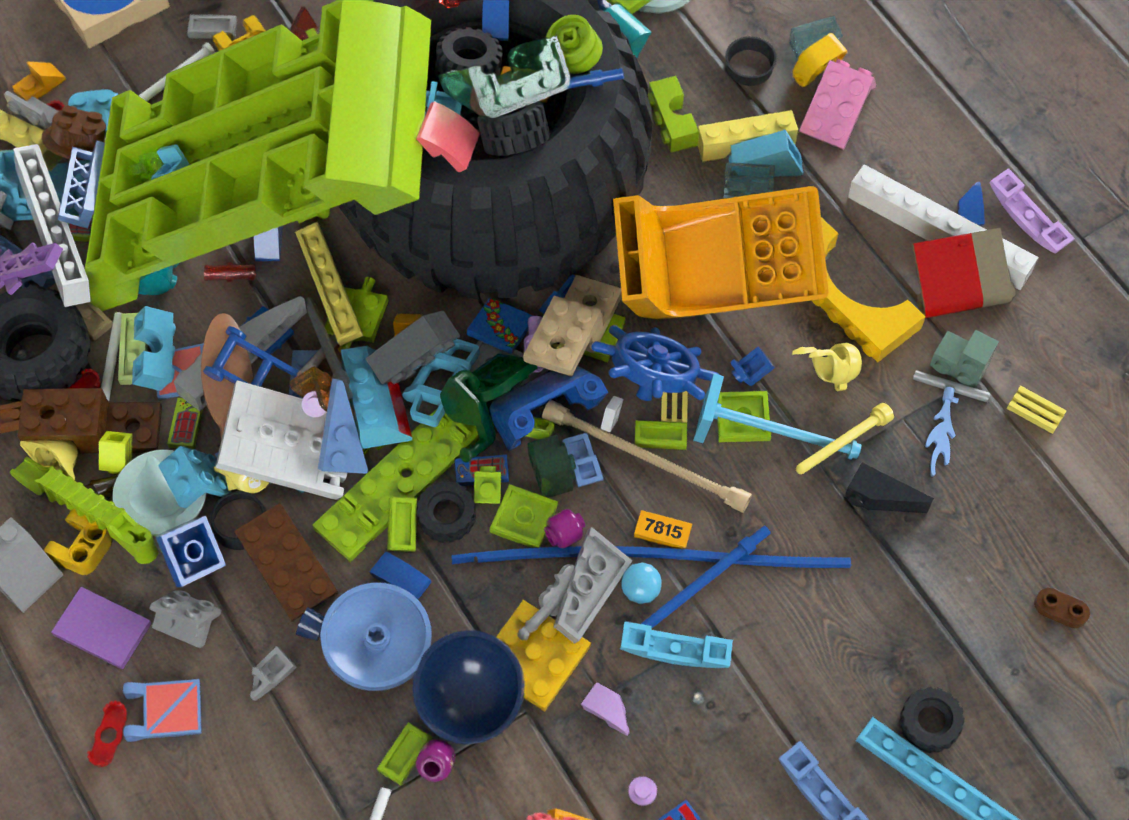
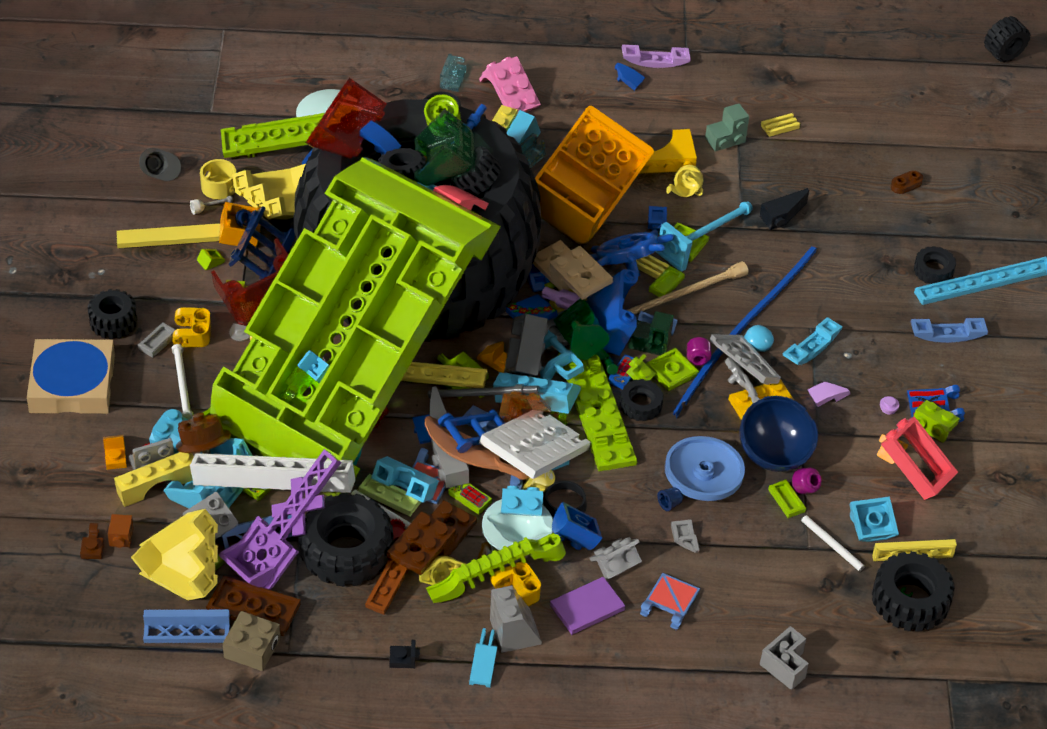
camera: 60 degrees left, 15 degrees down
(91, 185) = (261, 437): medium blue fence -> none
(114, 717) = (657, 627): red piece -> none
(115, 451) = (468, 535): neon yellow brick -> none
(285, 562) = (617, 489): reddish brown plate -> none
(311, 405) = (524, 412): lavender plate -> none
(318, 357) = (486, 403): light grey bar -> none
(340, 442) = (566, 418): medium blue wing -> none
(399, 573) = (662, 443): blue slope -> none
(402, 524) = (635, 422): lime tile -> none
(611, 413) = (639, 292): white tile -> none
(662, 530) = (731, 313): light orange tile -> none
(745, 546) = (772, 281): blue bar -> none
(816, 58) = (476, 76): yellow piece -> none
(880, 415) = (733, 184): light yellow piece -> none
(928, 217) = (635, 92): white brick -> none
(939, 433) = (763, 167): light blue piece -> none
(959, 388) = (736, 149): light grey bar -> none
(962, 273) = (676, 97): red door -> none

